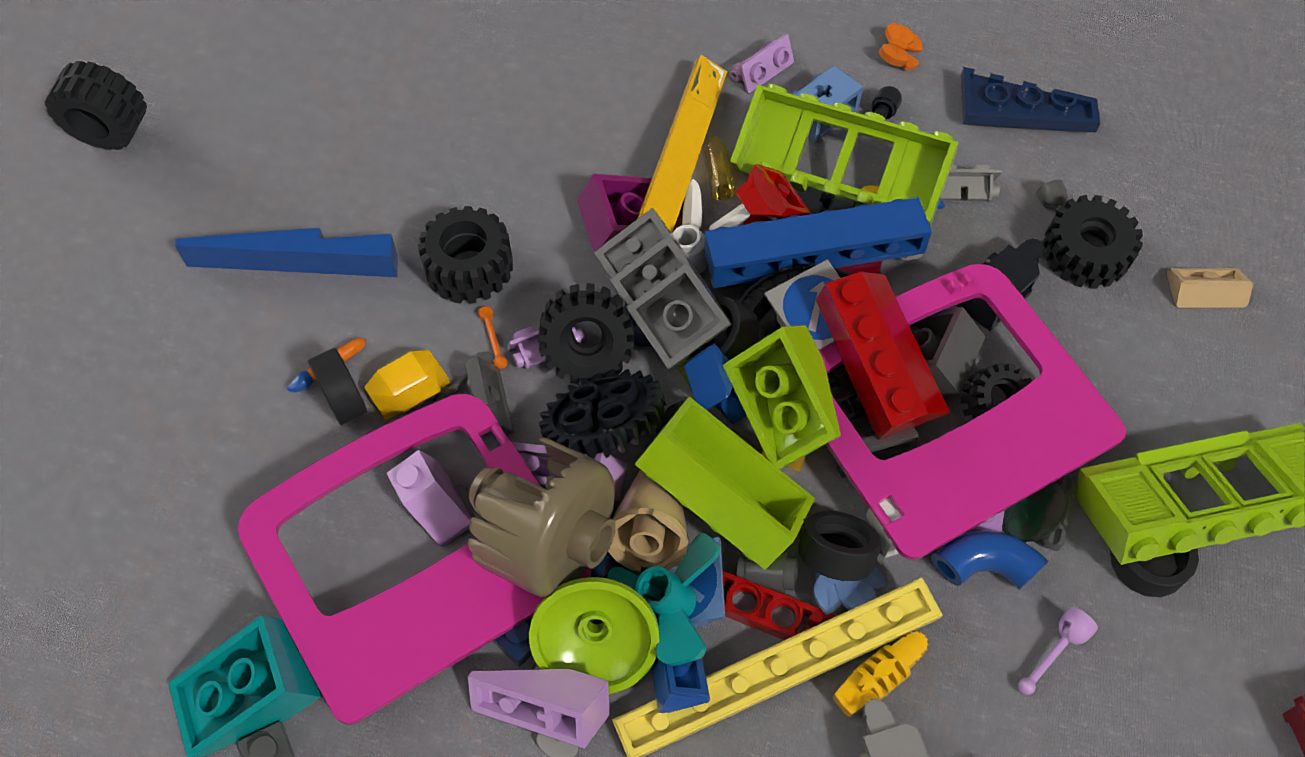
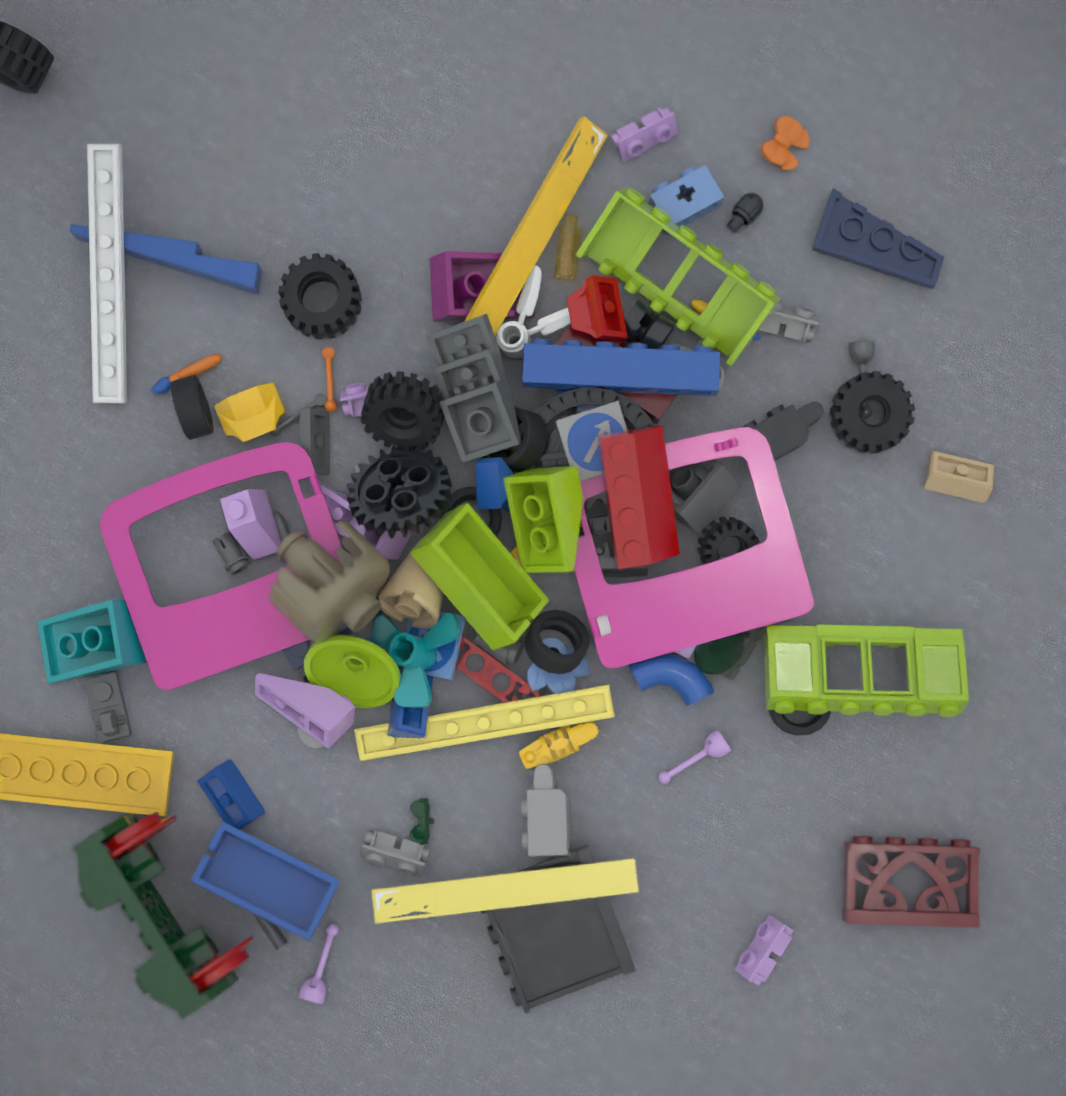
camera: 15 degrees right, 25 degrees up
(222, 282) = (107, 273): none -> white tile
(417, 548) = (231, 554): none -> dark grey pin

